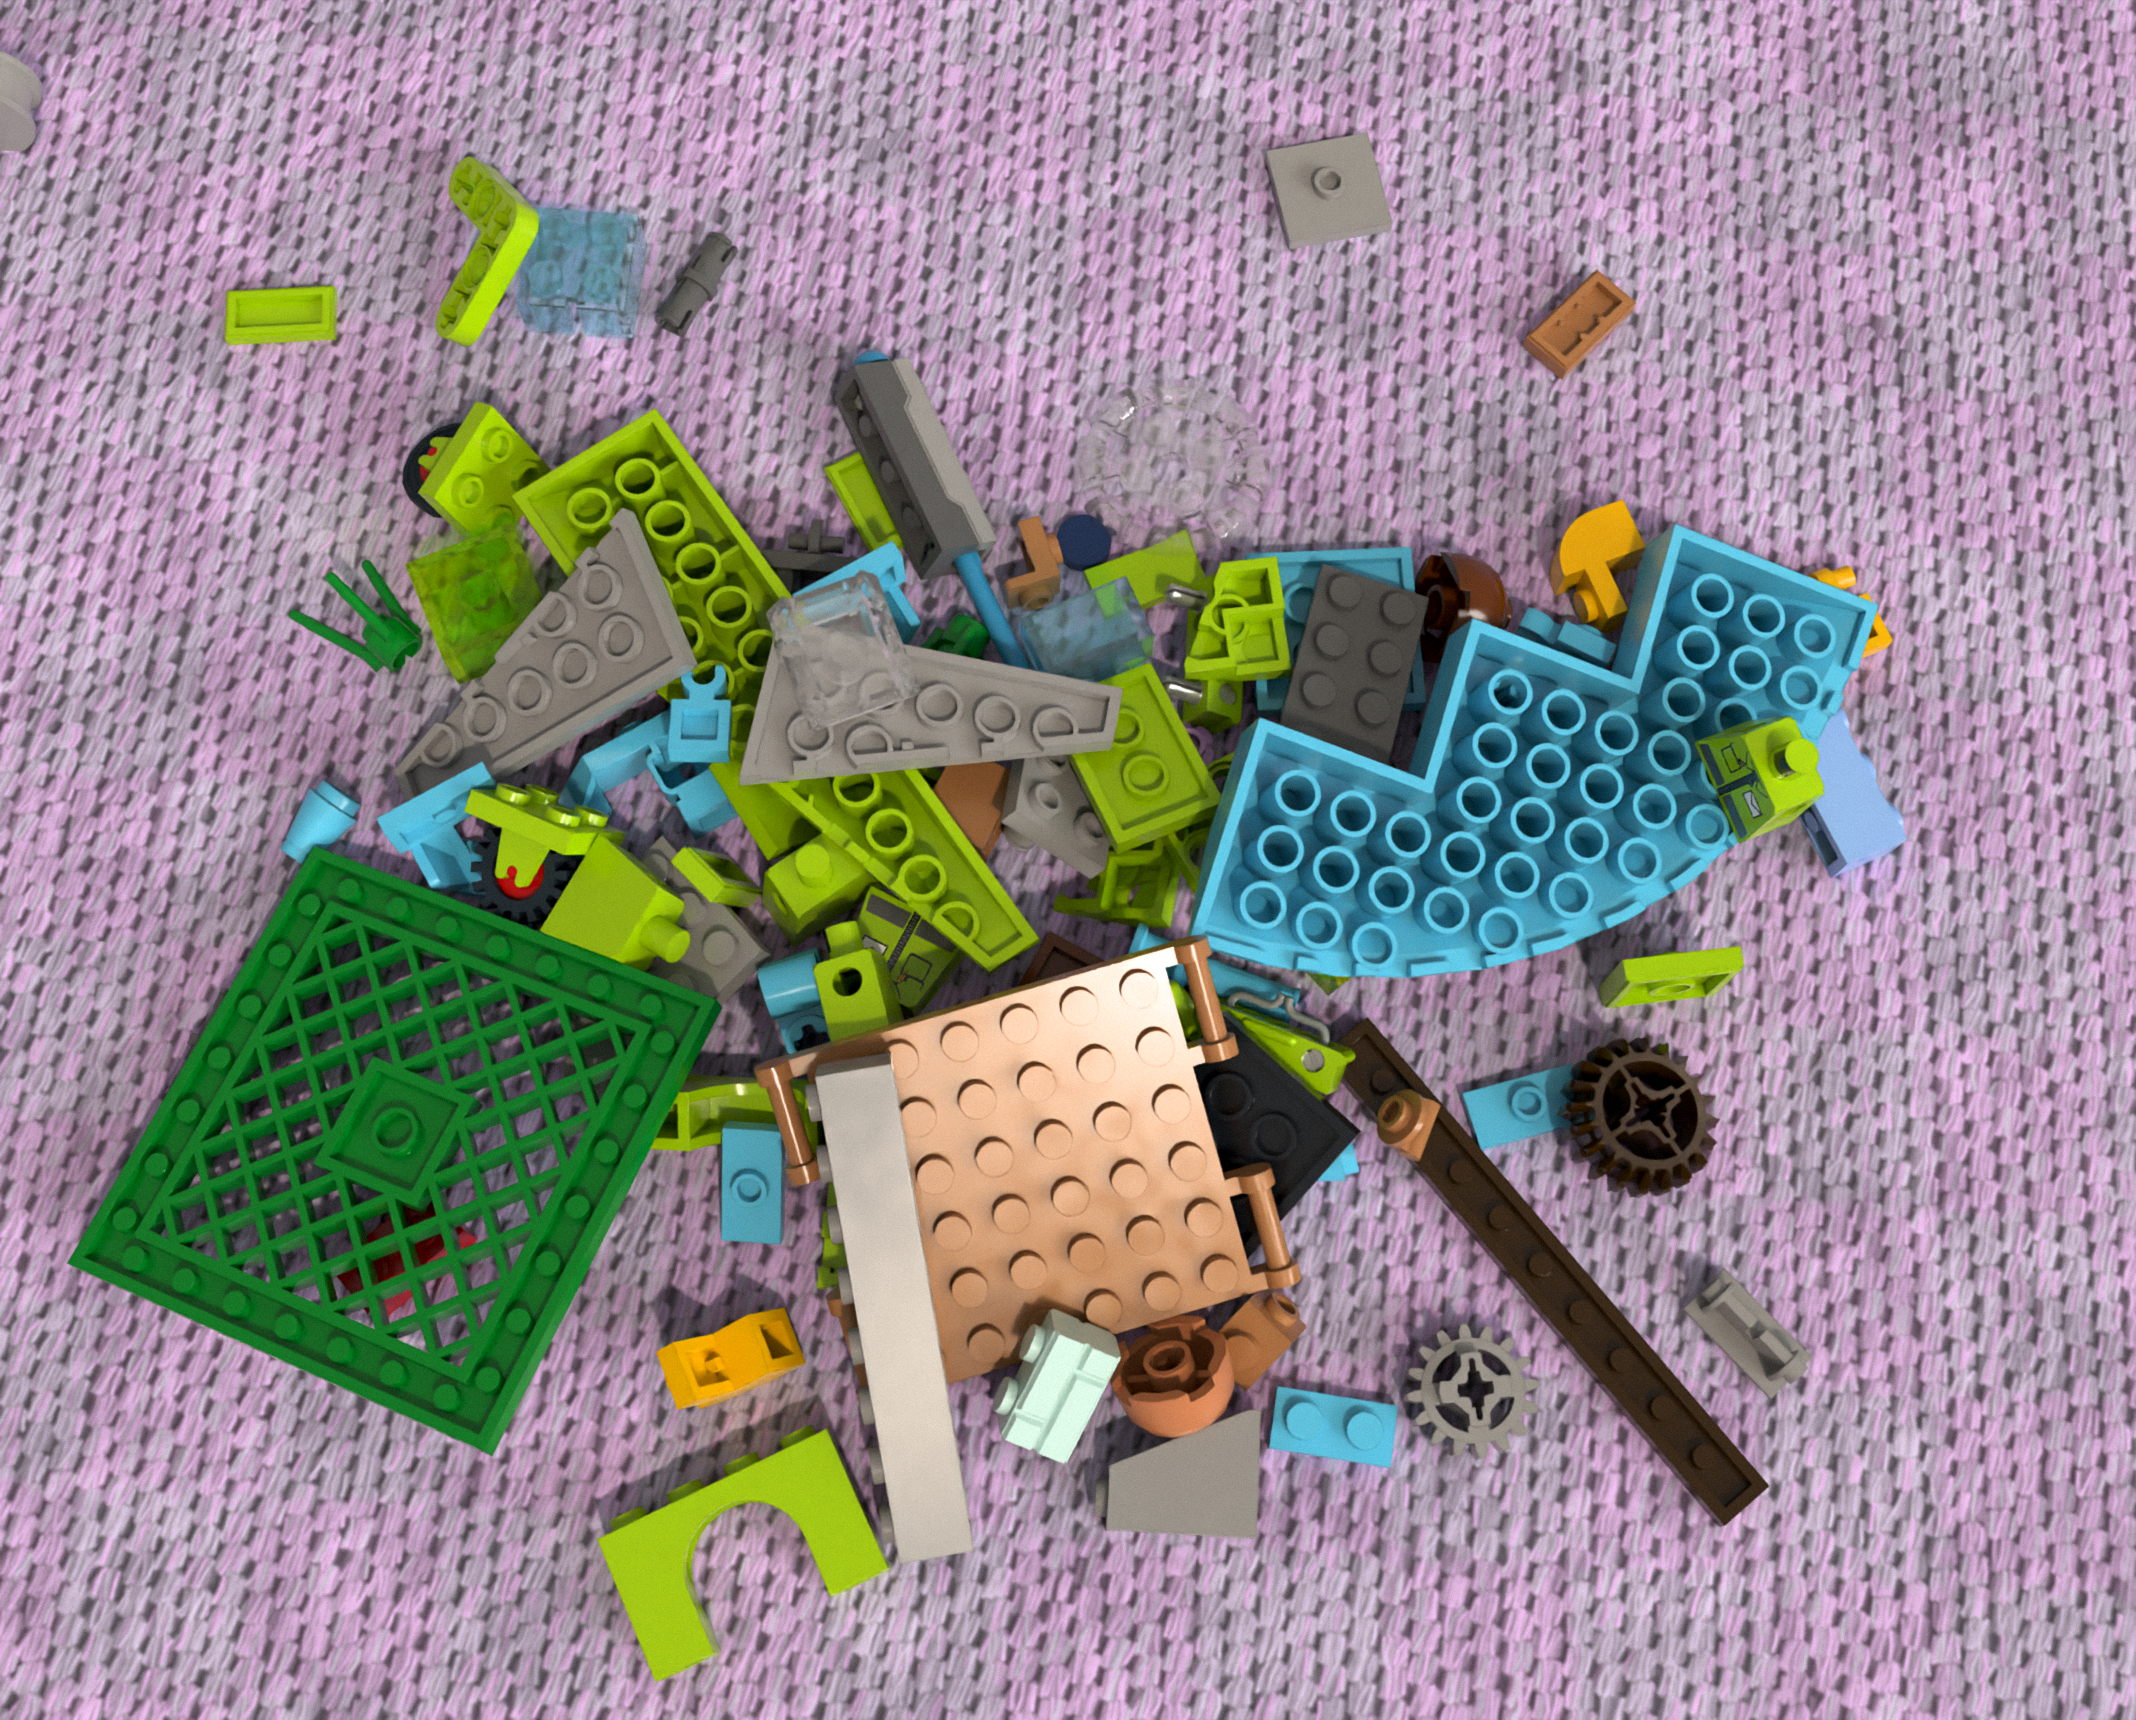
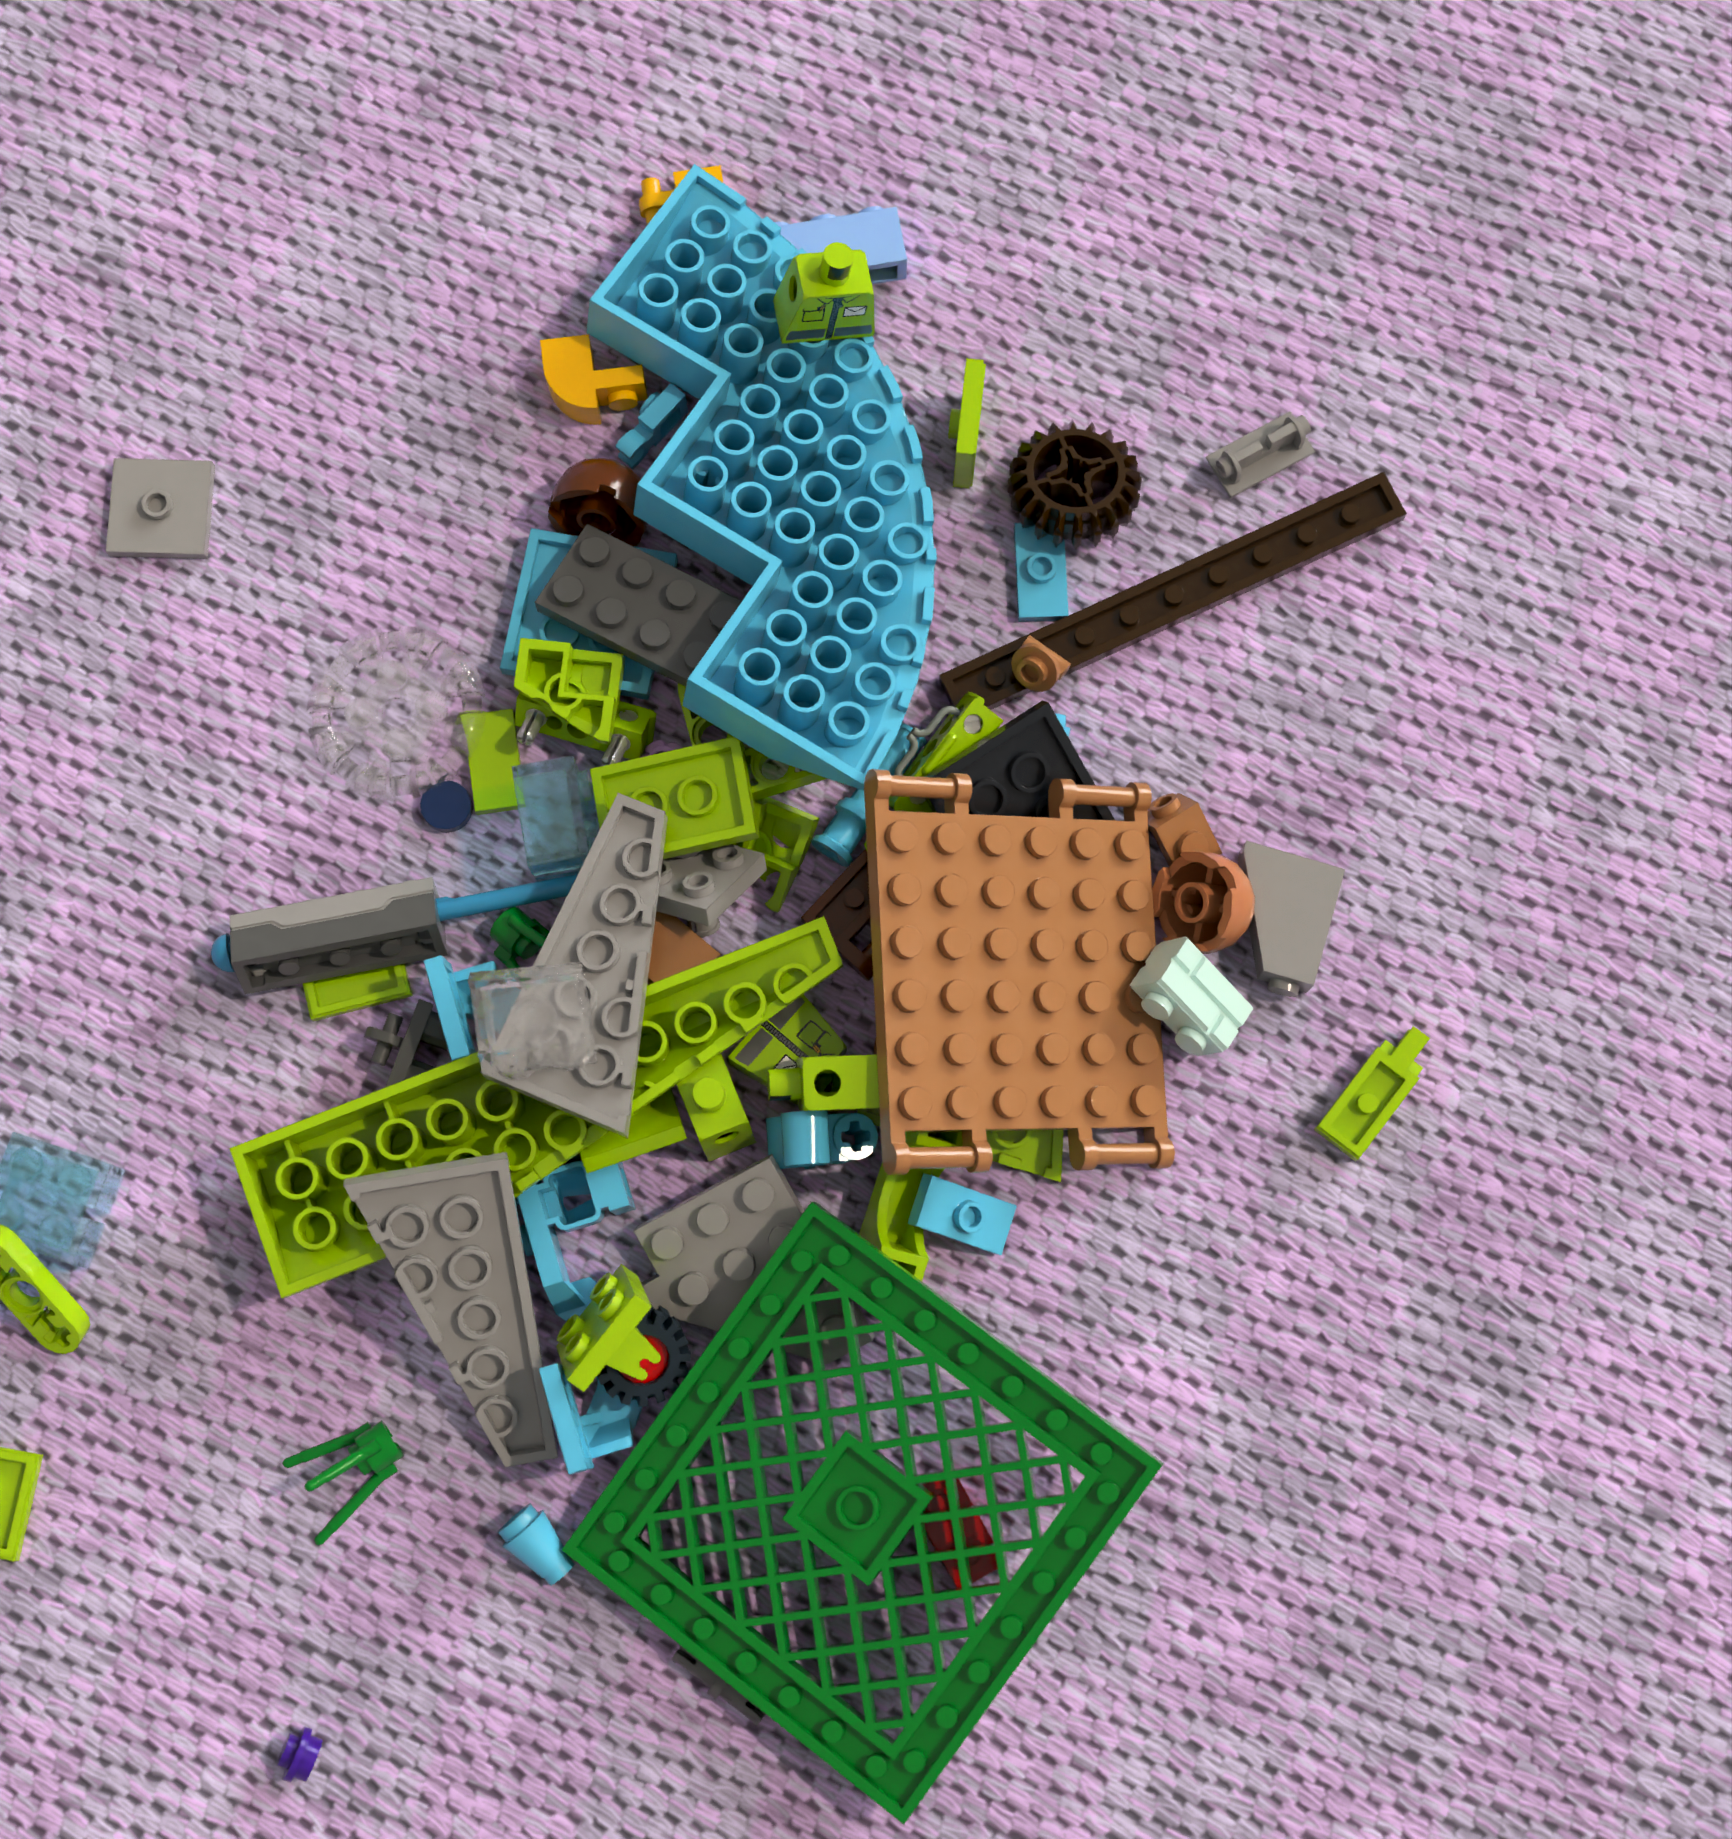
camera: 75 degrees left, 5 degrees up
(71, 645) = (299, 1755): none -> dark purple plate
(471, 472) = (234, 1342): lime plate -> none
(476, 597) = (365, 1352): clear neon green brick -> none
(619, 910) = (702, 1276): lime torso -> none
(655, 1551) = (1251, 1359): lime arch -> none
(696, 284) = (88, 1098): dark grey pin -> none
(701, 722) = (559, 1163): medium azure plate -> none
(716, 877) = (687, 1188): lime tile -> none
(730, 1360) = (1108, 1262): yellow brick -> none
(893, 1307) = (1104, 1106): brick -> none
(998, 1635) = (1373, 1095): none -> lime hinge
(1041, 556) = (455, 844): medium nougat bracket -> none
(1333, 1427) = (1264, 792): medium azure plate -> none
(1474, 1420) = (1281, 675): light grey gear -> none
(1579, 324) = (357, 330): medium nougat plate -> none

